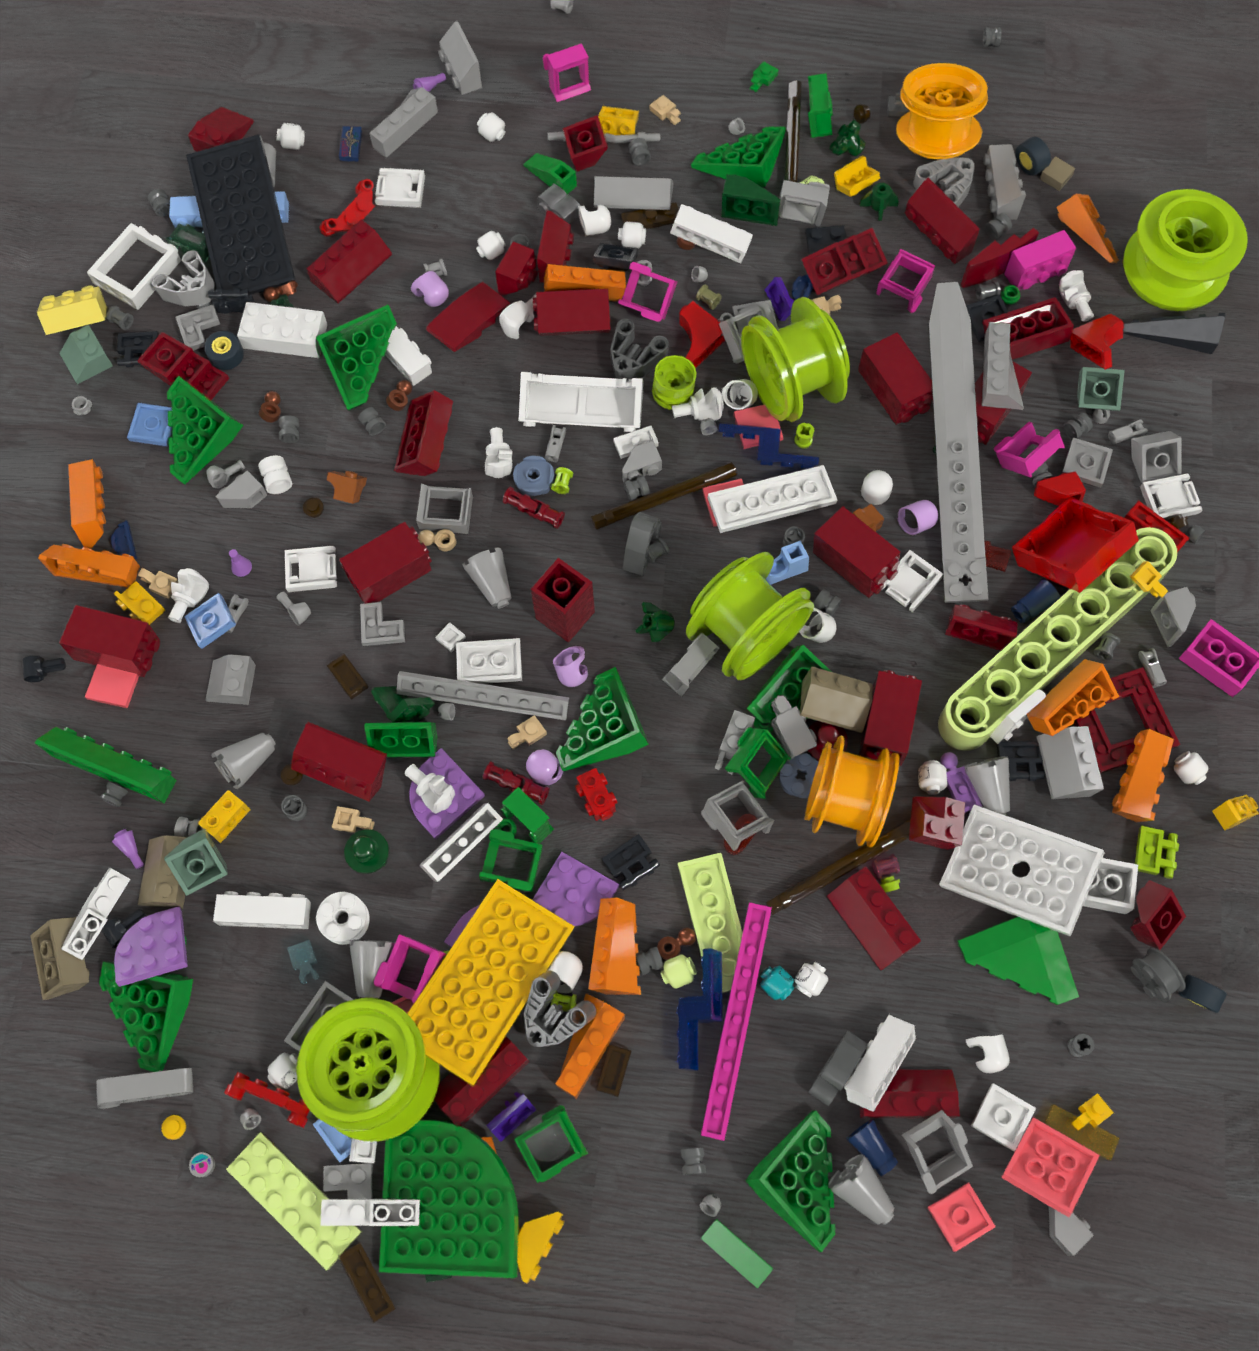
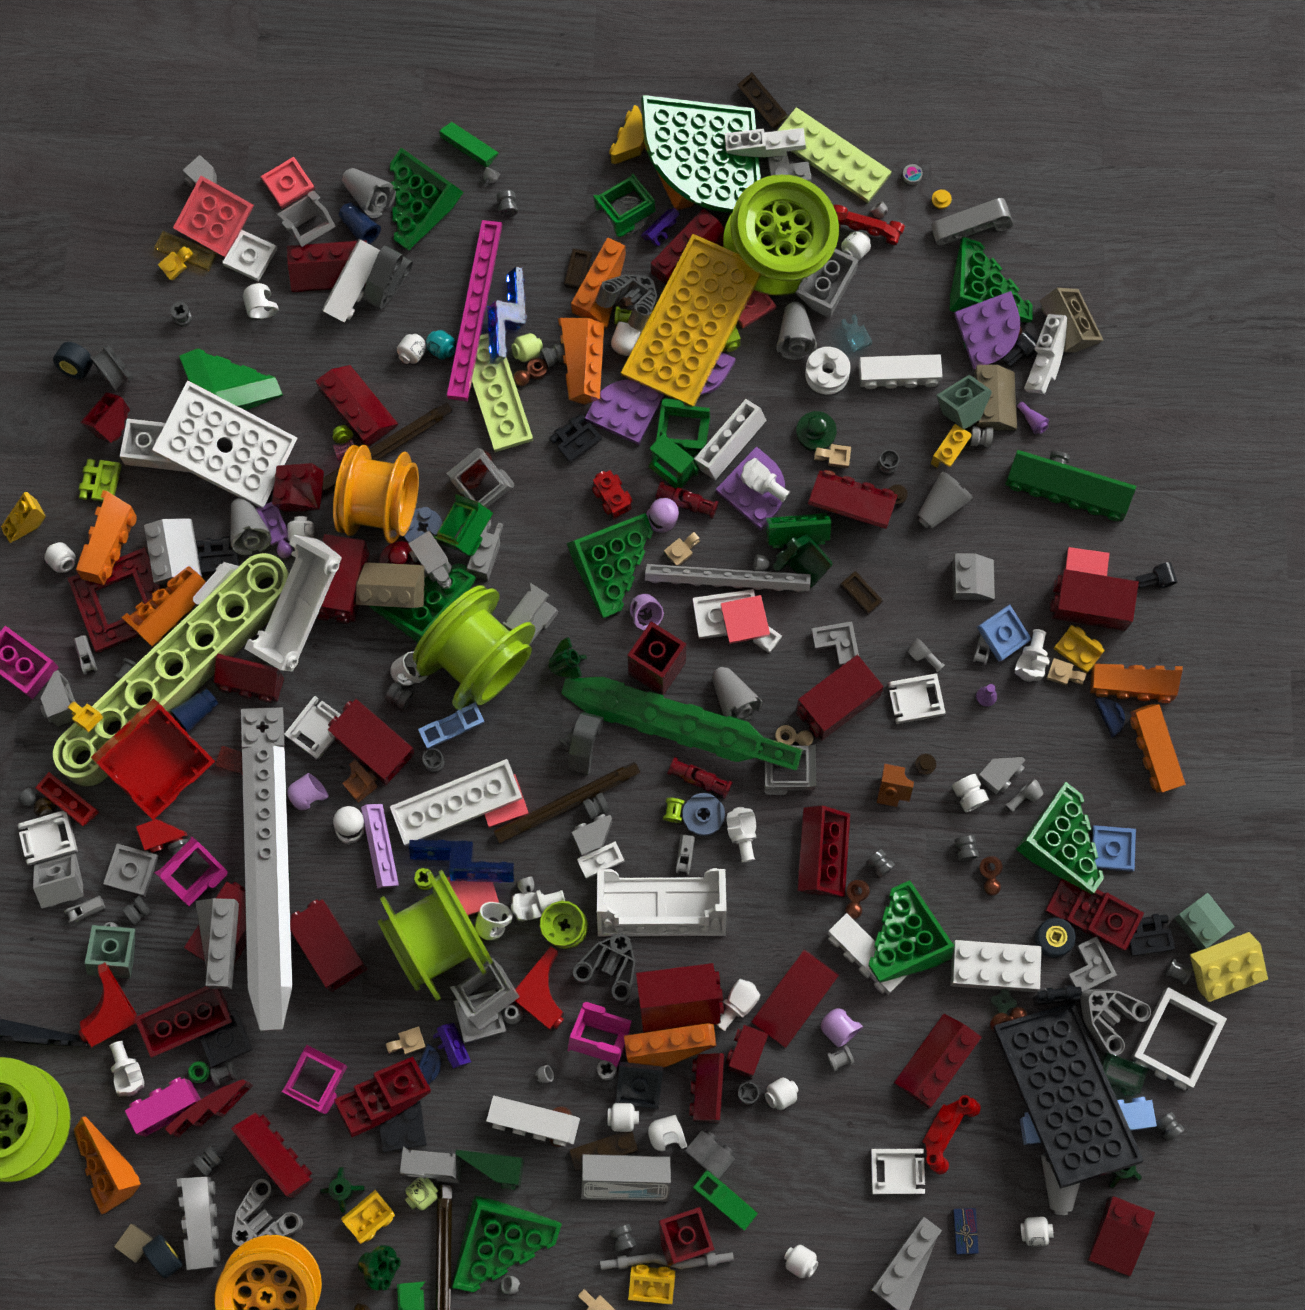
camera: 175 degrees right, 5 degrees up
(81, 401) = (1199, 863): light grey plate -> none
(389, 971) = (752, 342): dark pink piece -> none
(470, 649) = (745, 619): none -> coral tile
(544, 550) = (677, 721): none -> green plate
(708, 297) = (532, 1043): olive bush -> none
(847, 467) = (379, 846): none -> lavender plate
(934, 676) = (297, 604): none -> white windscreen

